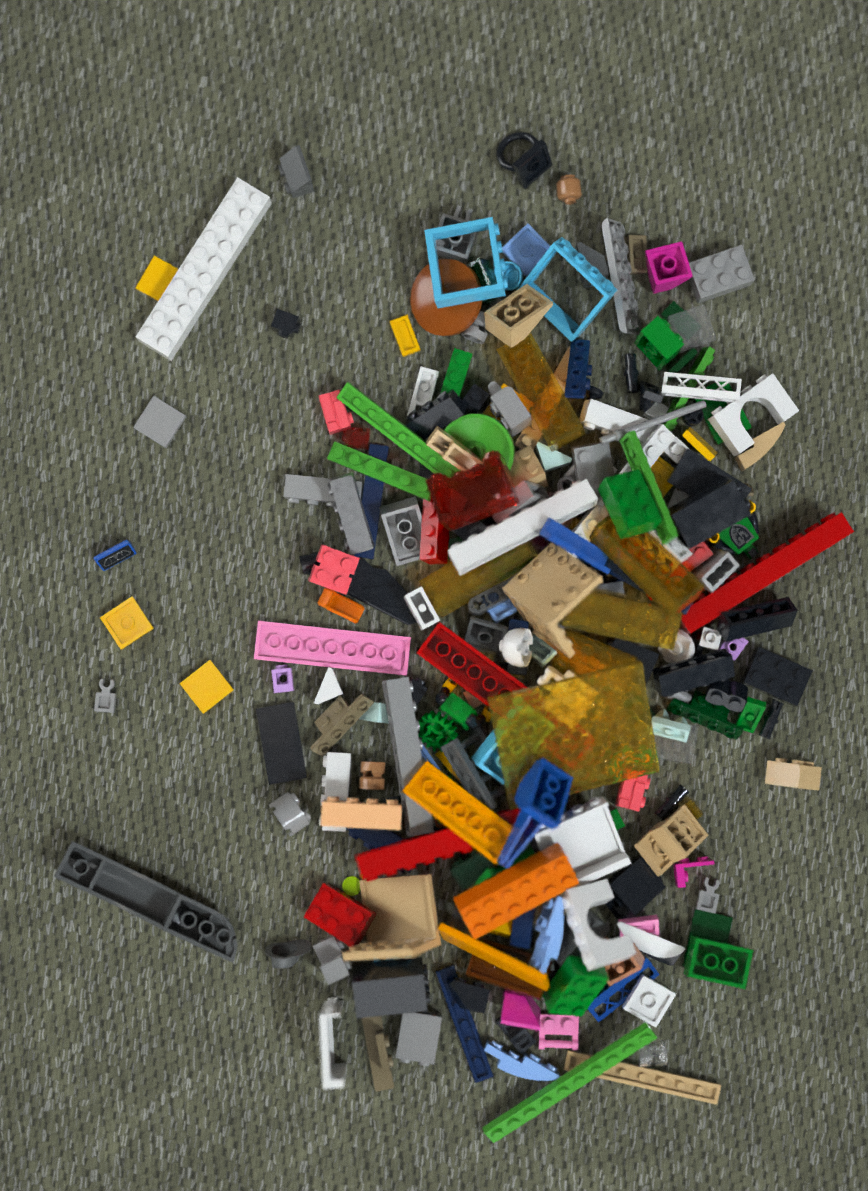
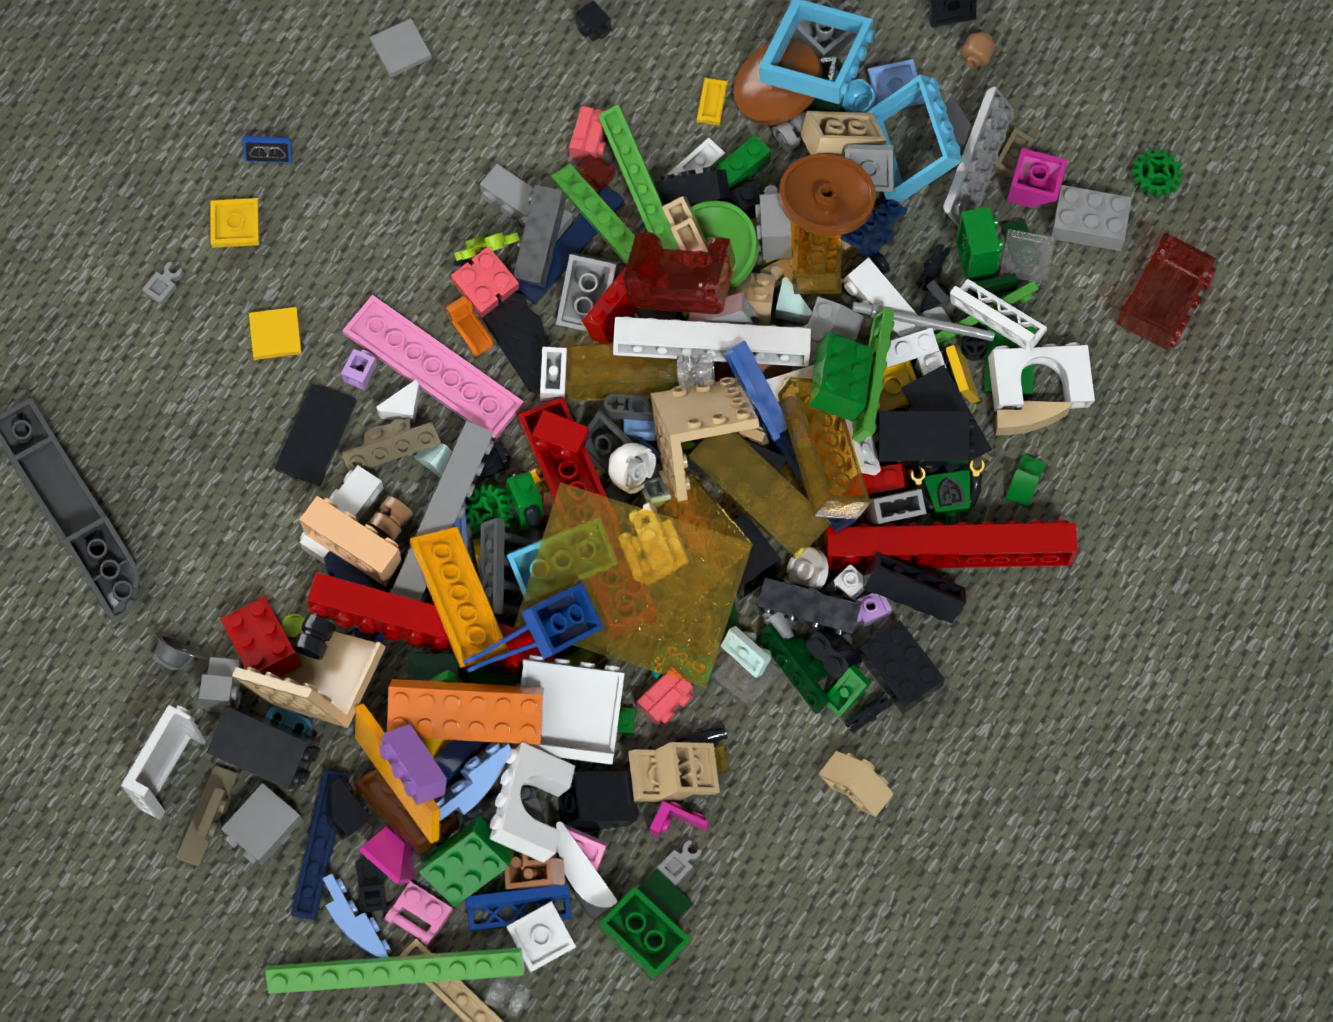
camera: 35 degrees right, 15 degrees down
(289, 813) = (275, 506): light grey brick -> none
(320, 538) = (479, 243): none -> lime plant
(376, 893) = (312, 641): none -> black wheel
(457, 654) = (560, 436): none -> red brick
(509, 955) = (413, 764): none -> medium lavender brick
(526, 556) = (704, 370): none -> clear wheel
(538, 370) = (827, 194): none -> dark orange dish
(552, 329) = (876, 161): none -> light grey tile
(753, 214) = (1156, 182): none -> green gear
(781, 493) = (1025, 481): none -> green slope
(802, 302) = (1167, 292): none -> clear red windscreen

